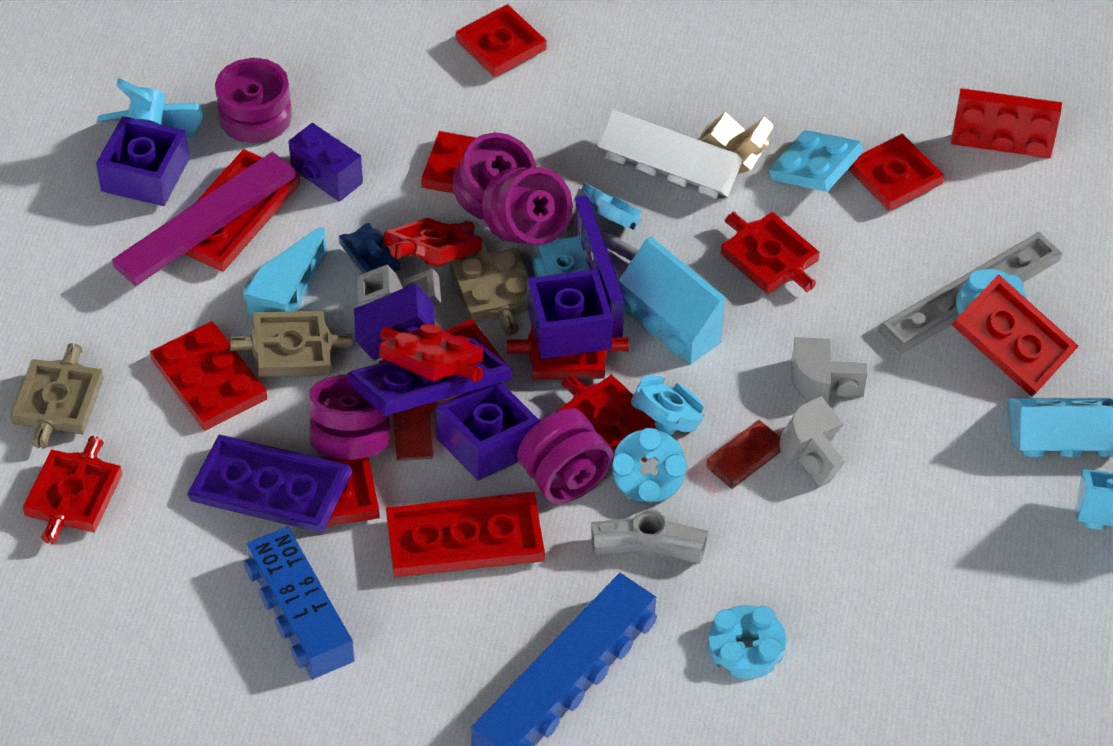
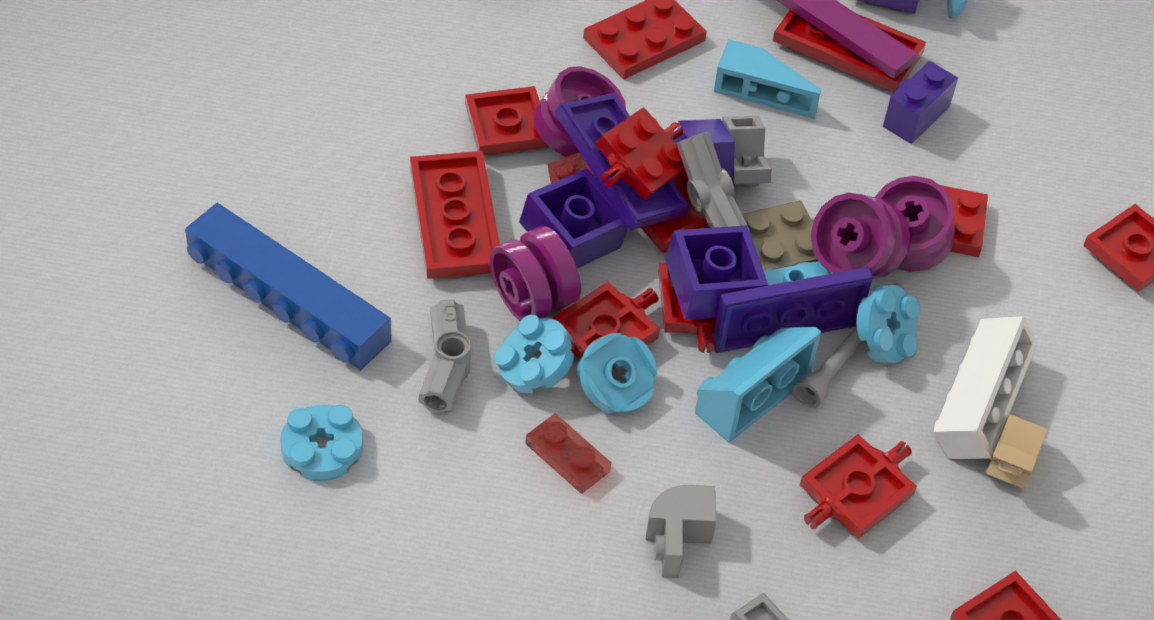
camera: 85 degrees right, 0 degrees up
(253, 100) = (989, 43): magenta wheel -> none
(270, 483) = (508, 70): dark purple tile -> none
(291, 343) = (680, 81): dark tan plate -> none
(299, 602) = (375, 95): blue brick -> none
(367, 249) = (802, 133): dark blue hips -> none
(433, 241) = (812, 170): red plate -> none
(465, 313) = (708, 183): none -> light grey piece
(809, 439) = (582, 493): light grey brick -> none
(815, 160) = (1009, 537): medium azure plate -> none

